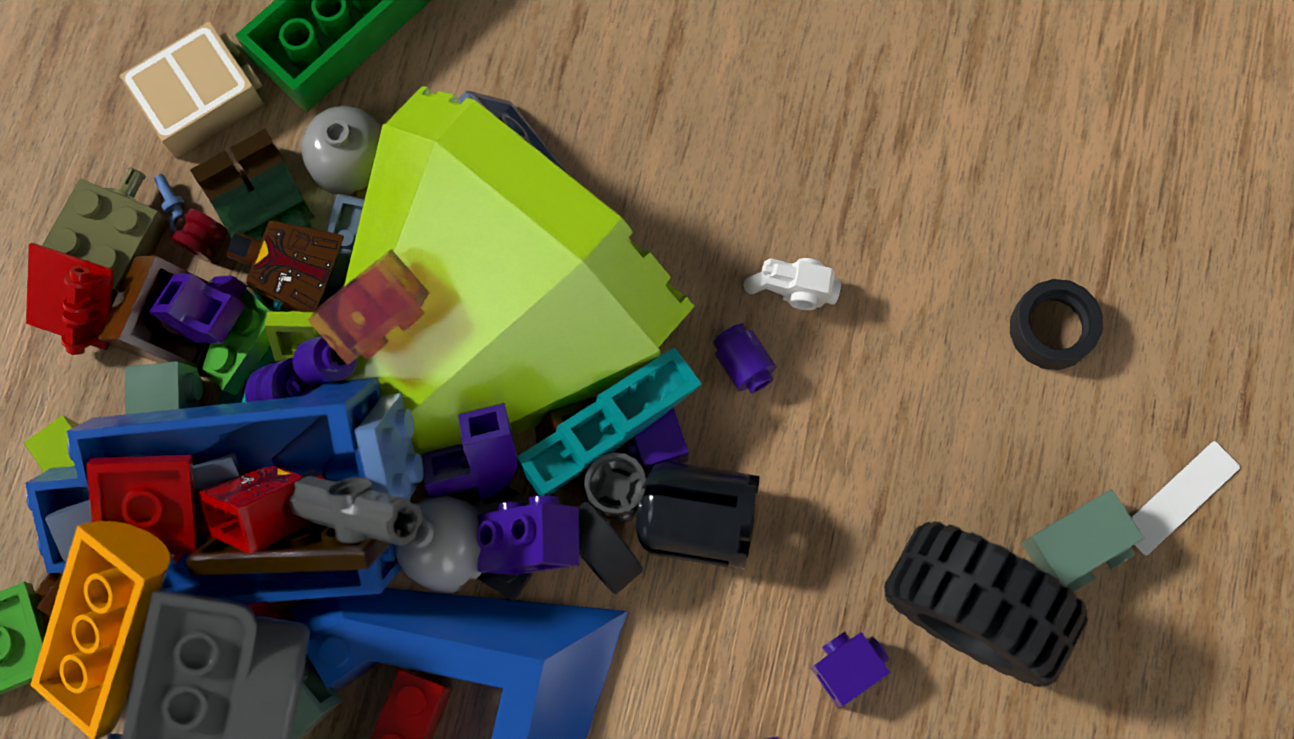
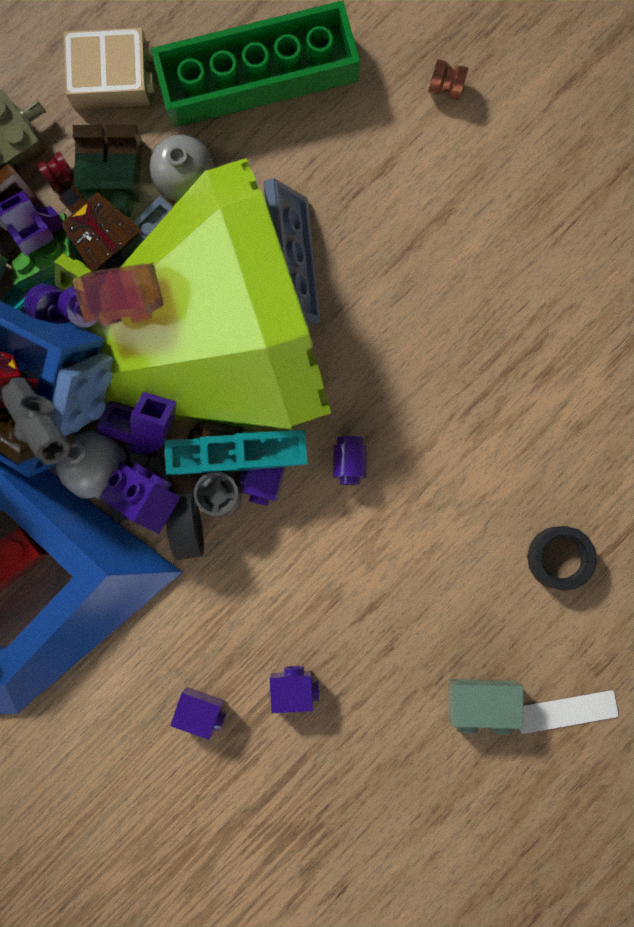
camera: 30 degrees right, 10 degrees up
(172, 203) = (54, 139): medium blue hand -> none
(697, 514) = (256, 542): black cylinder -> none
(802, 284) = (416, 434): white piece -> none
(986, 603) = (391, 713): black tyre -> none

